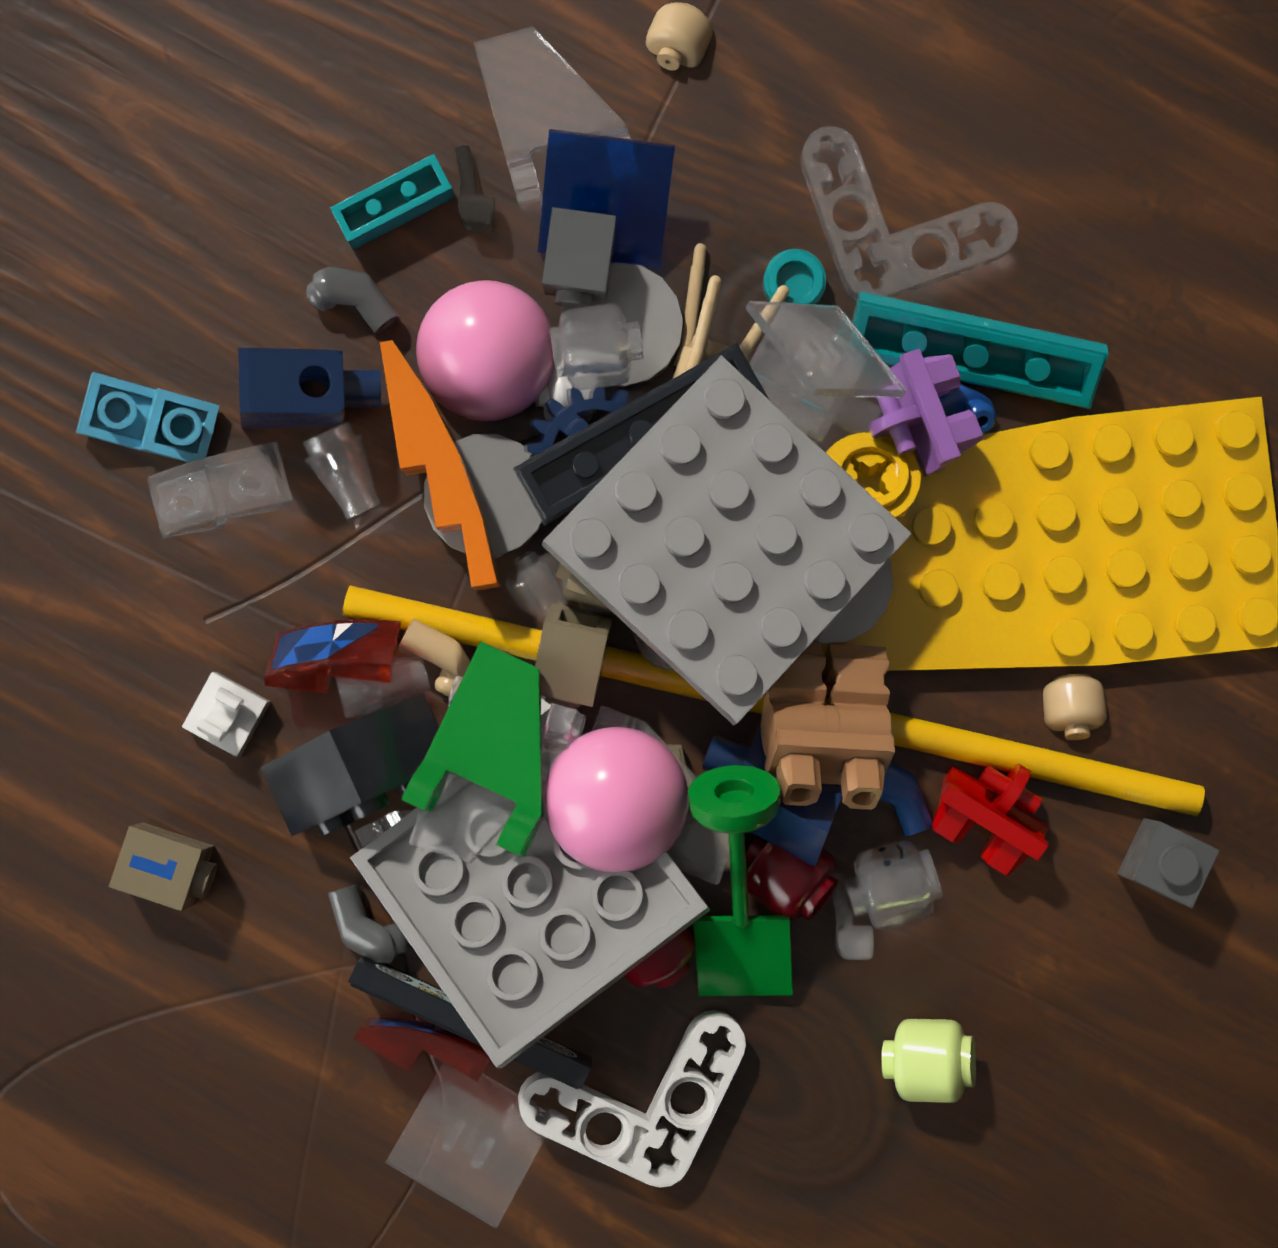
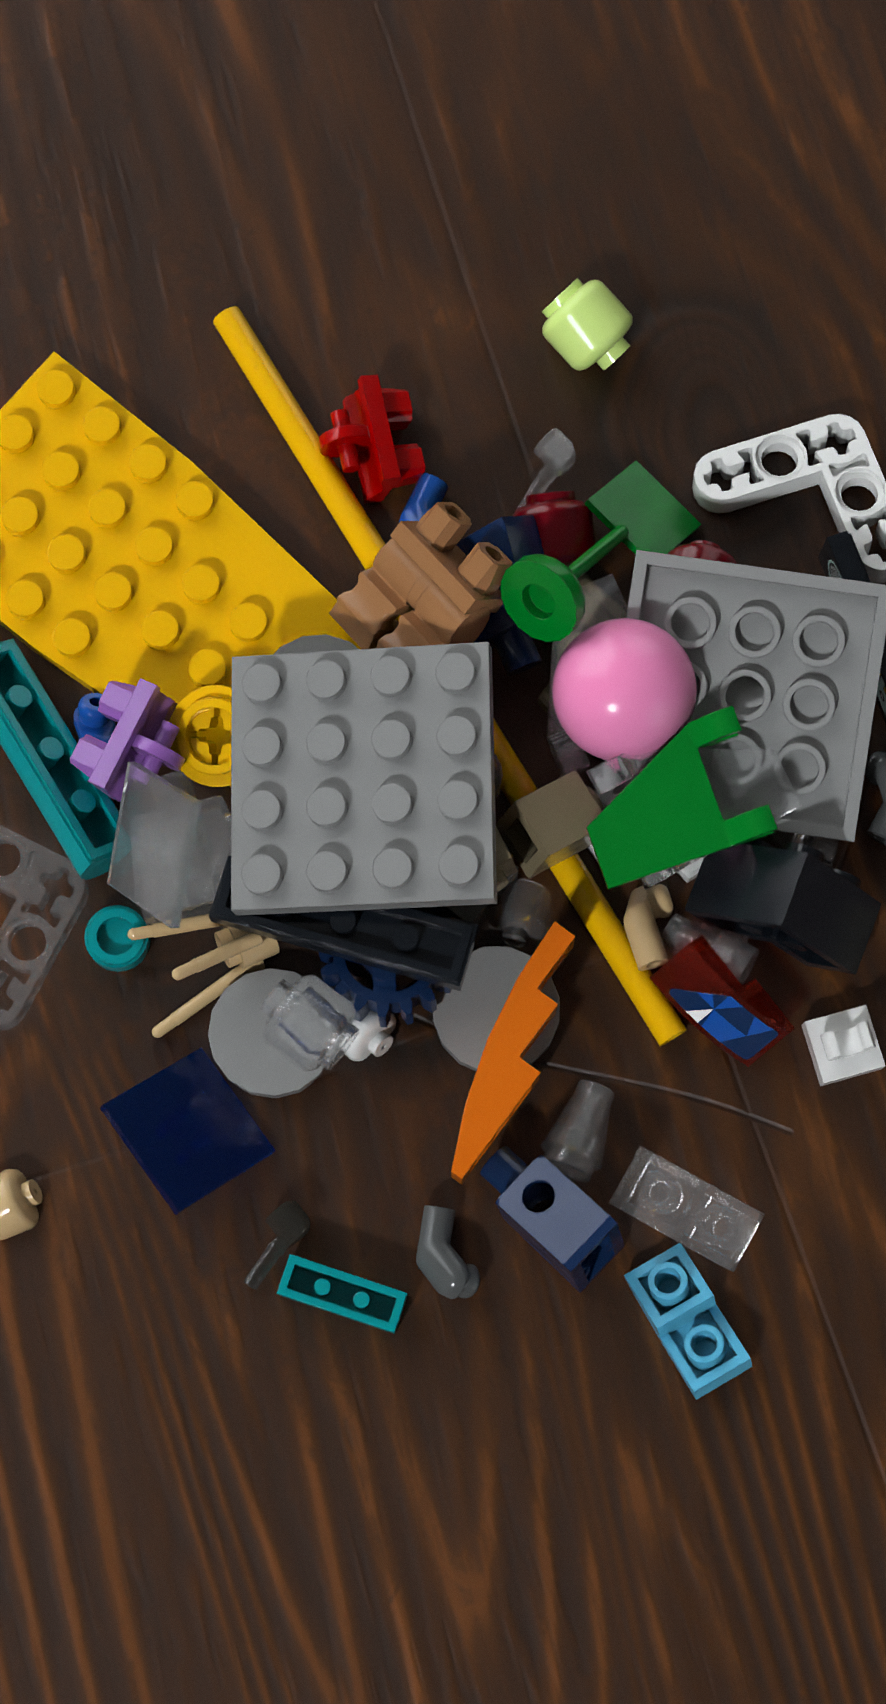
camera: 135 degrees left, 10 degrees down
(485, 350) = (388, 1113): bright pink piece -> none
(536, 92) = (160, 1256): clear flag -> none
(579, 257) = (254, 1099): dark grey brick -> none
(894, 885) = (491, 457): clear head -> none
(1074, 705) = (240, 460): tan piece -> none
(1168, 862) = (291, 293): dark grey brick -> none

